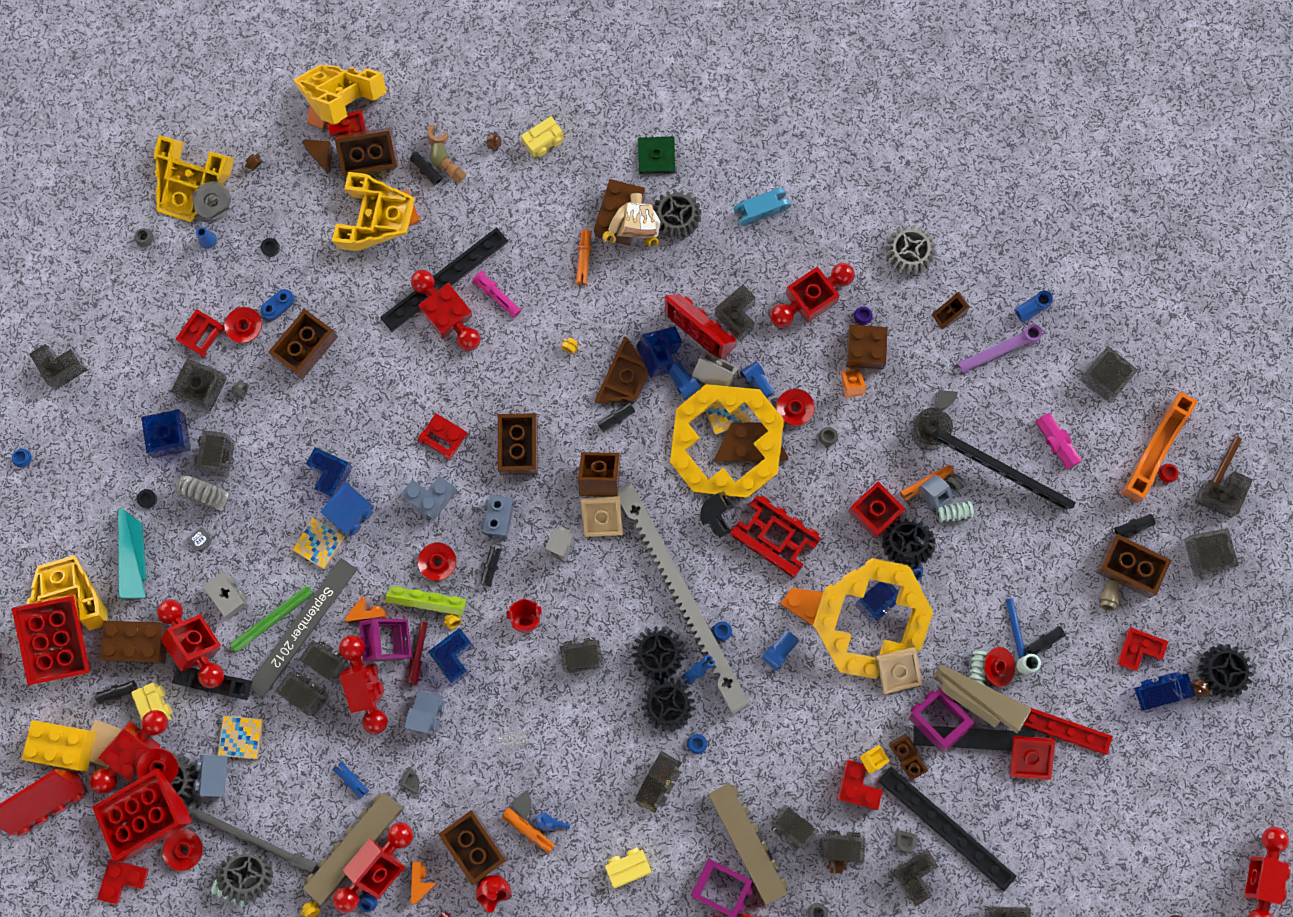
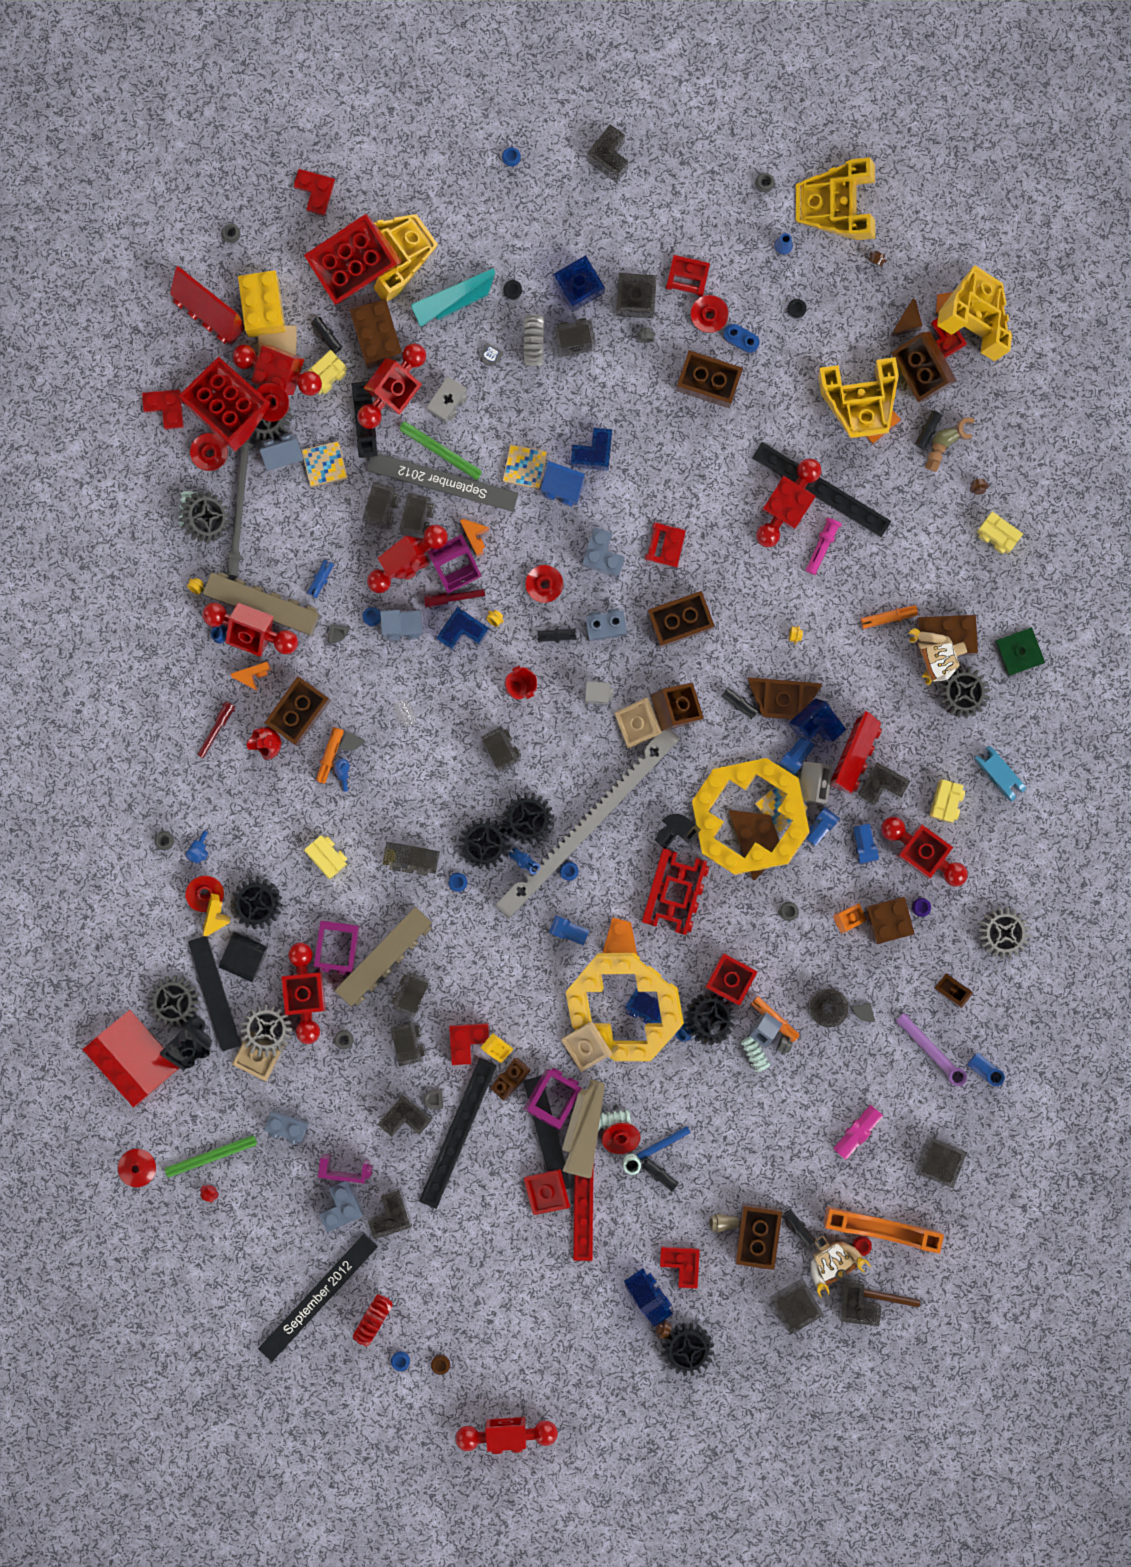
camera: 65 degrees right, 10 degrees up
(207, 190) = (829, 227): dark grey plate -> none
(407, 740) = (372, 616): none -> blue plate
(425, 600) = (504, 587): lime plate -> none
(772, 261) = (946, 801): none -> light yellow brick
(791, 346) = (865, 845): none -> blue piece
(797, 398) = (816, 867): red dish -> none
(836, 867) = (389, 1044): reddish brown plate -> none
(1003, 469) = (809, 1087): black tile -> none
(1178, 503) = (833, 1262): none -> torso

